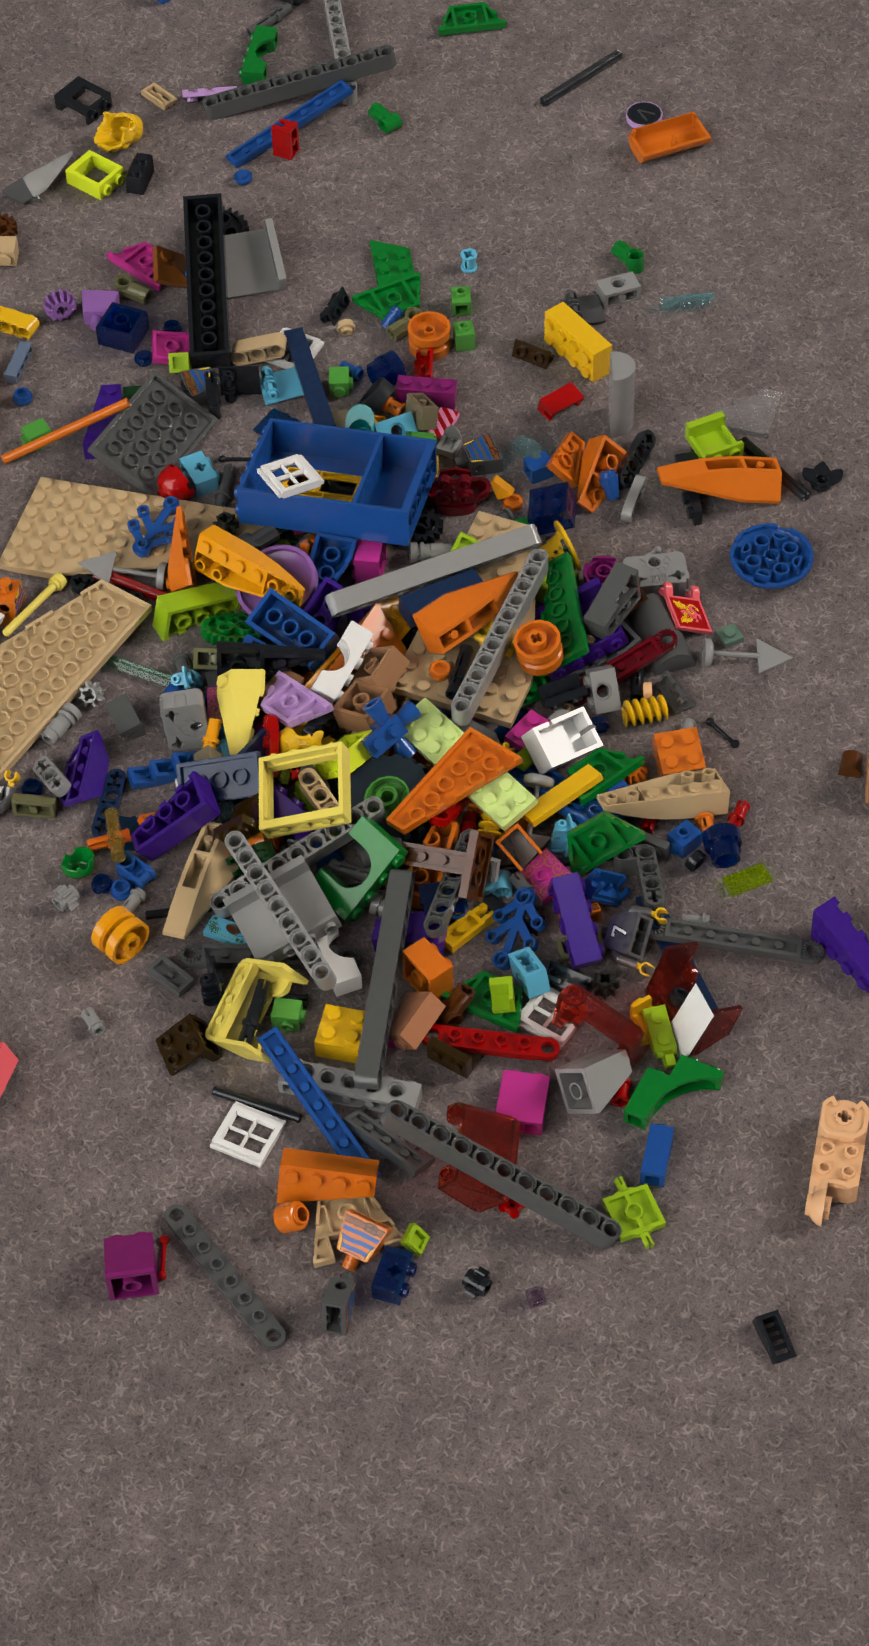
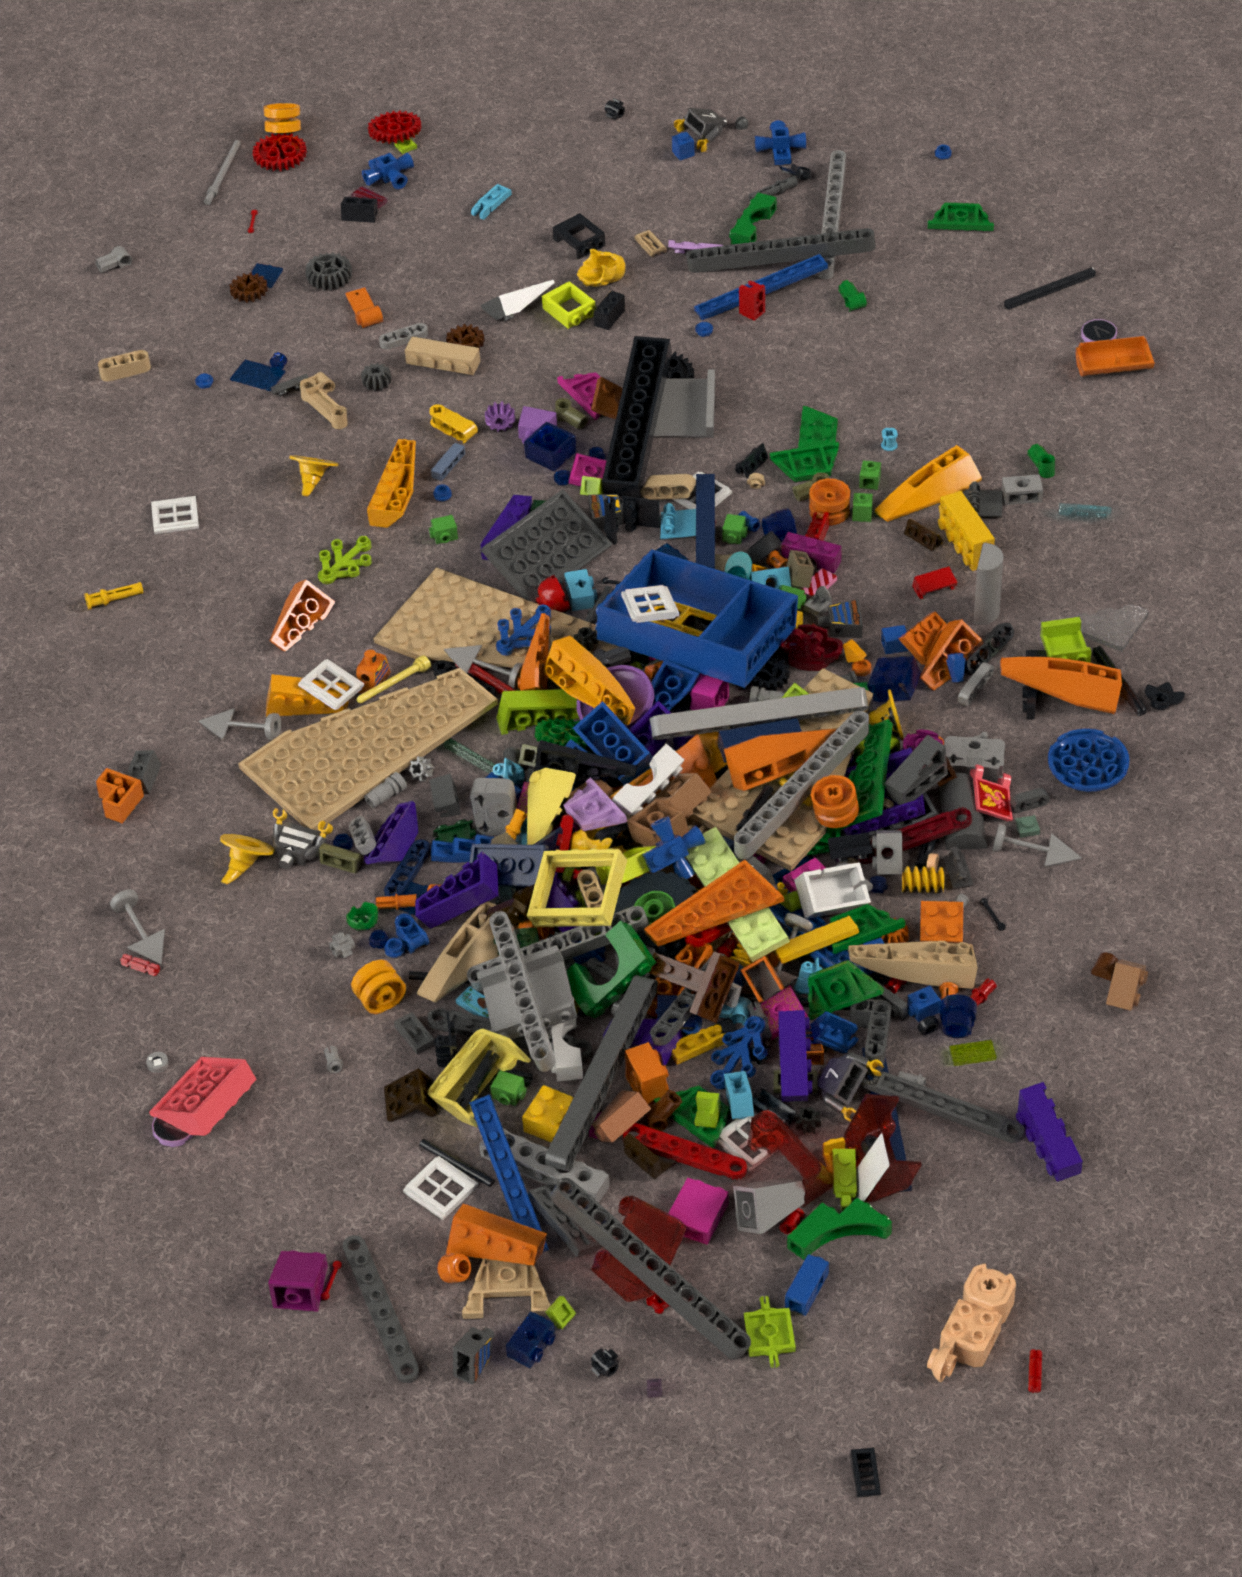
camera: 15 degrees right, 5 degrees down
(65, 430) = (468, 529): orange piece -> none
(115, 841) = (400, 901): clear yellow pin -> none
(135, 898) = (402, 959): light grey pin -> none
(153, 750) = (460, 829): none -> dark green hinge
(361, 1238) = (510, 1300): torso -> none
(394, 314) = (804, 476): blue pin -> none
(439, 670) = (738, 805): orange tile -> none
(526, 300) = (941, 476): none -> light orange wedge
(526, 447) = (888, 618): clear light blue hinge -> none
(724, 608) = (1029, 800): none -> dark grey beam

